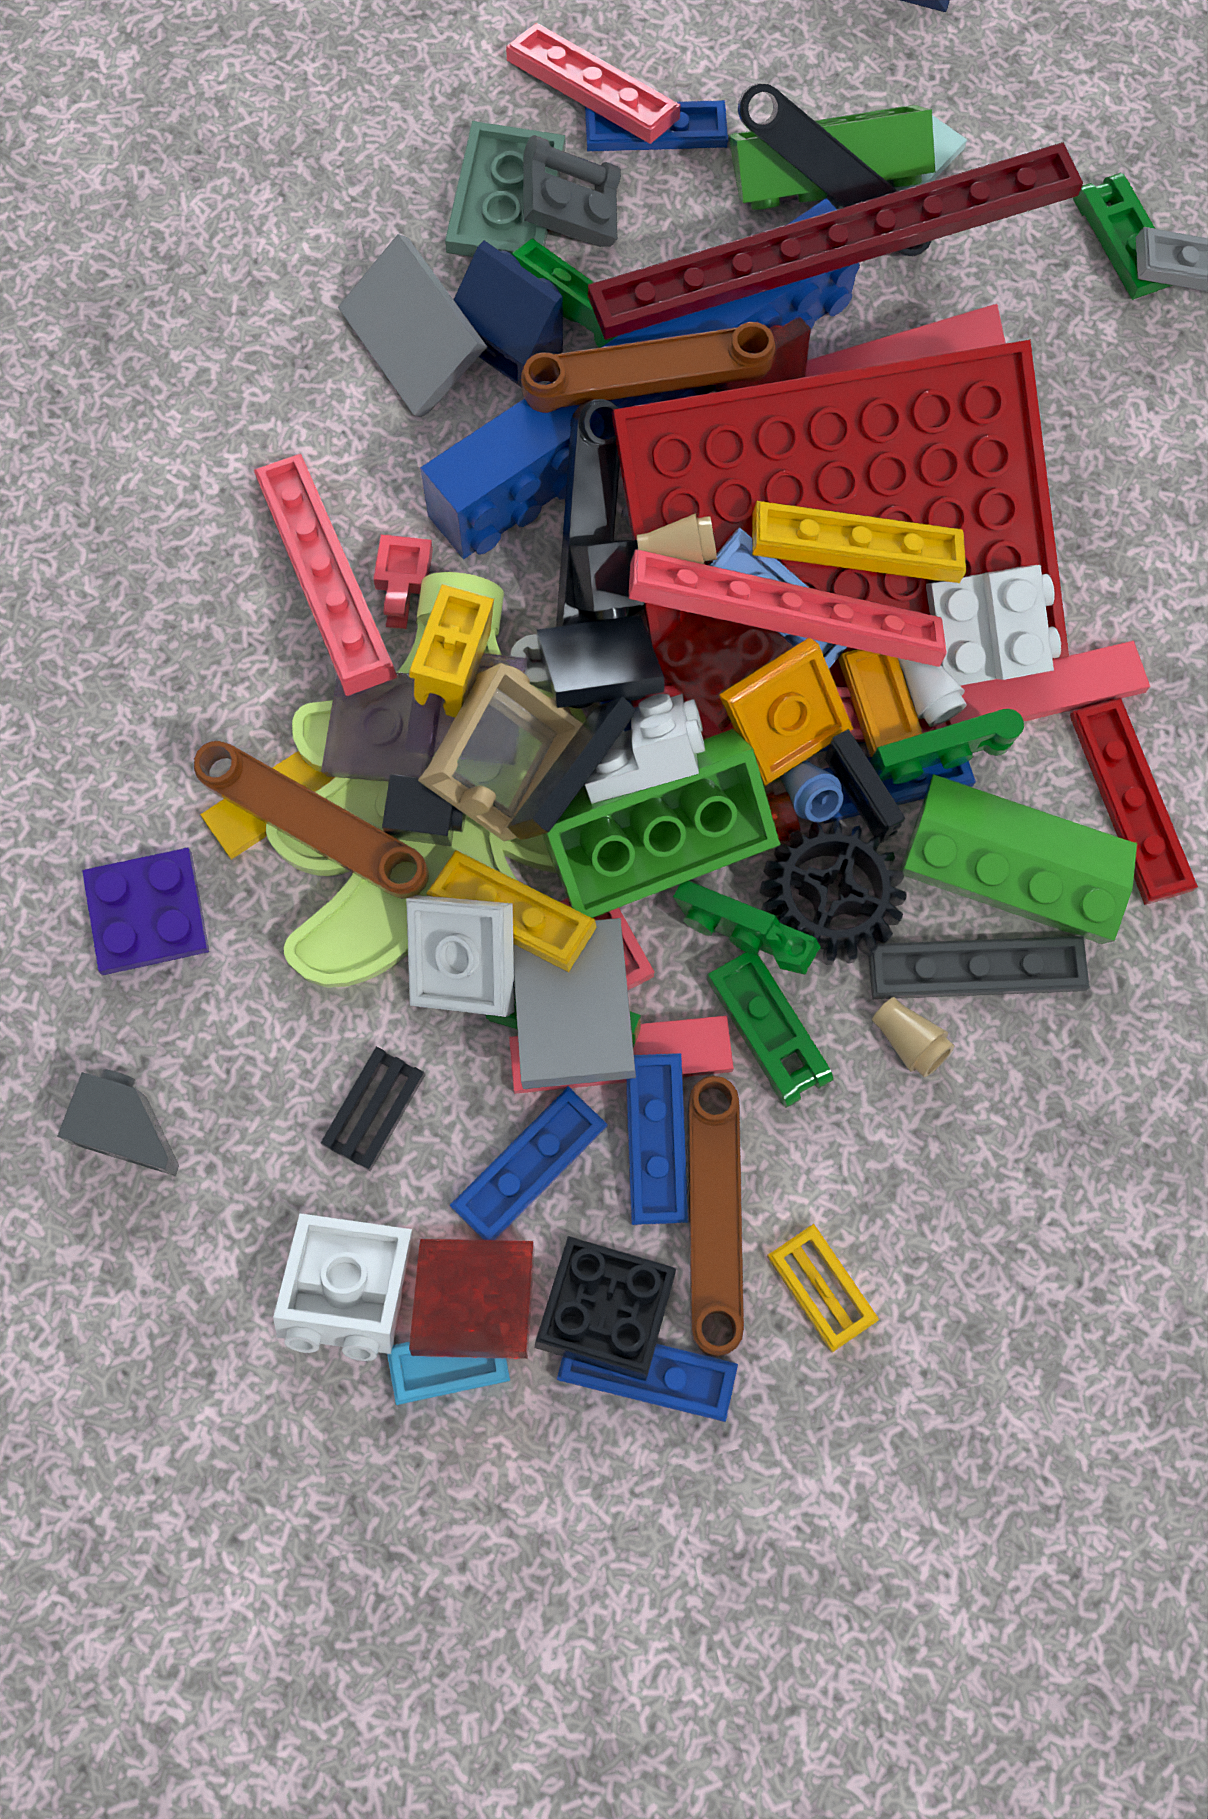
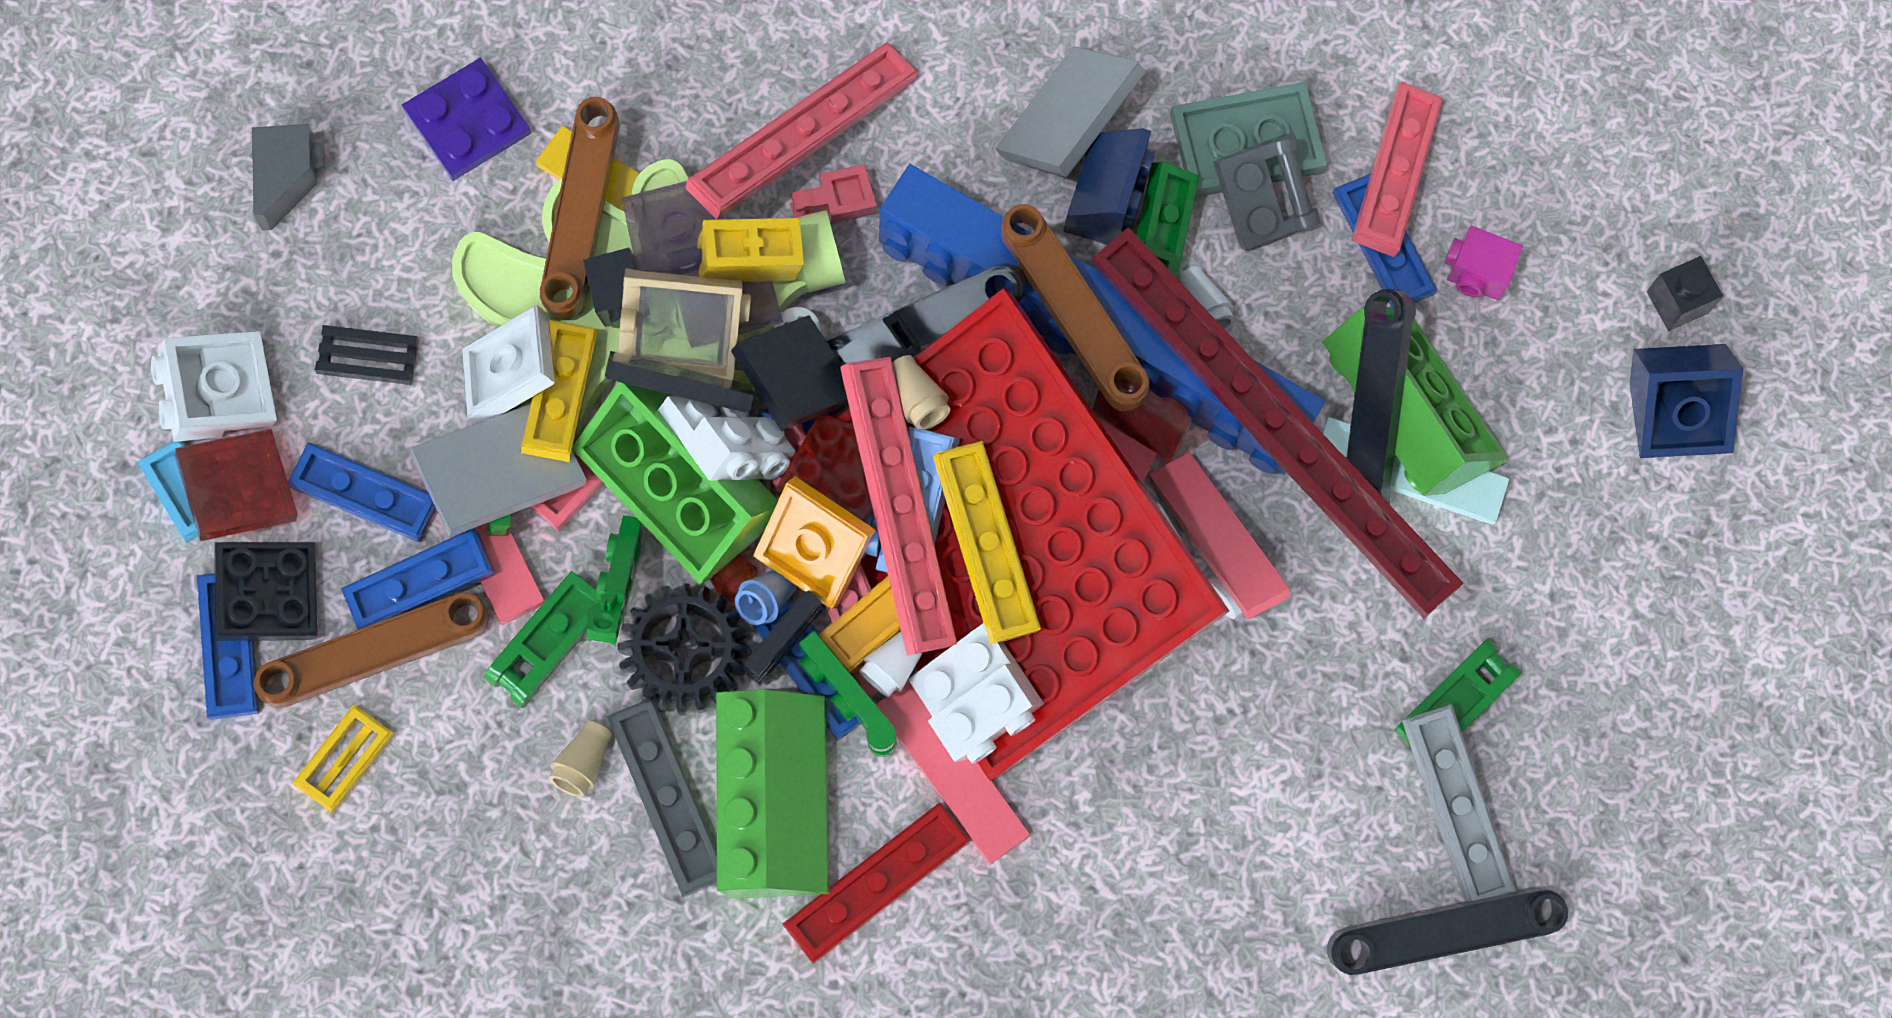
camera: 65 degrees right, 0 degrees up
(717, 49) = (1482, 263): none -> dark pink brick

